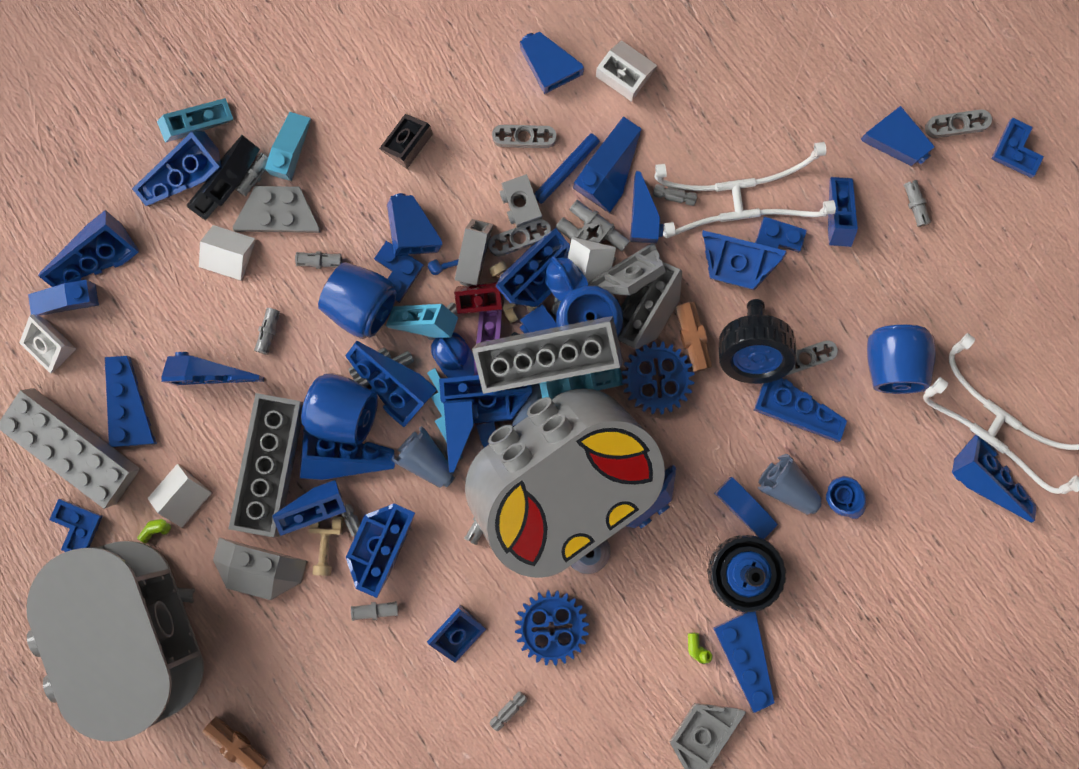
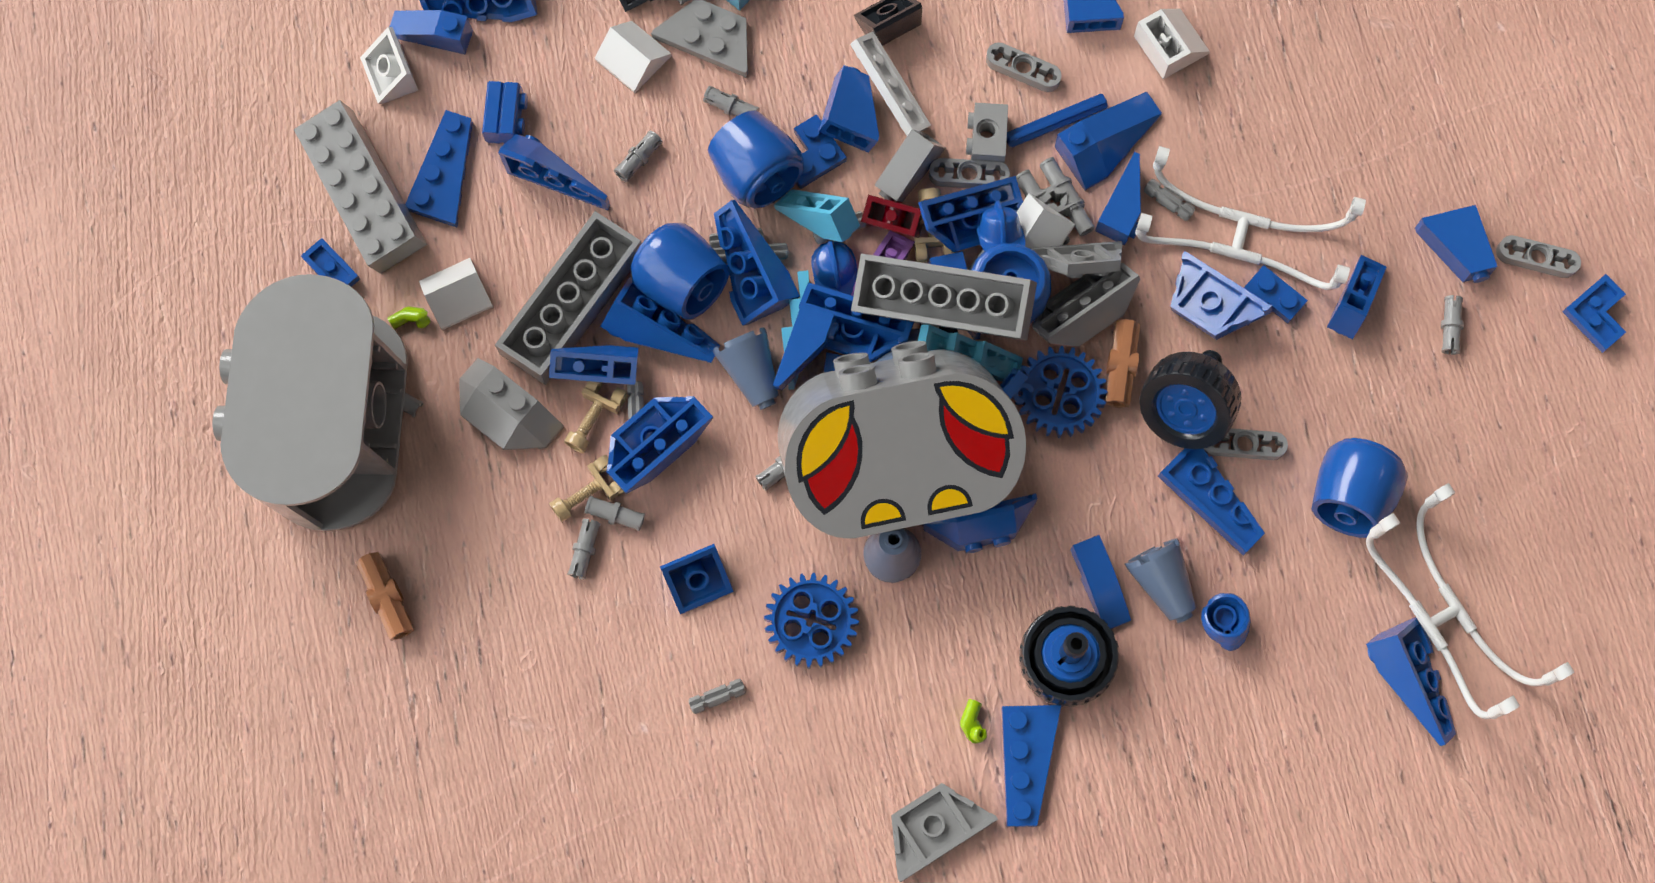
camera: 25 degrees right, 10 degrees down
(150, 340) = (503, 111): none -> blue brick
(334, 624) = (563, 507): none -> tan bar
(363, 647) = (583, 549): none -> light grey pin
(432, 195) = (890, 83): none -> white plate
(435, 267) = (859, 167): blue hand -> none
(622, 391) = (1013, 383): none -> blue tile

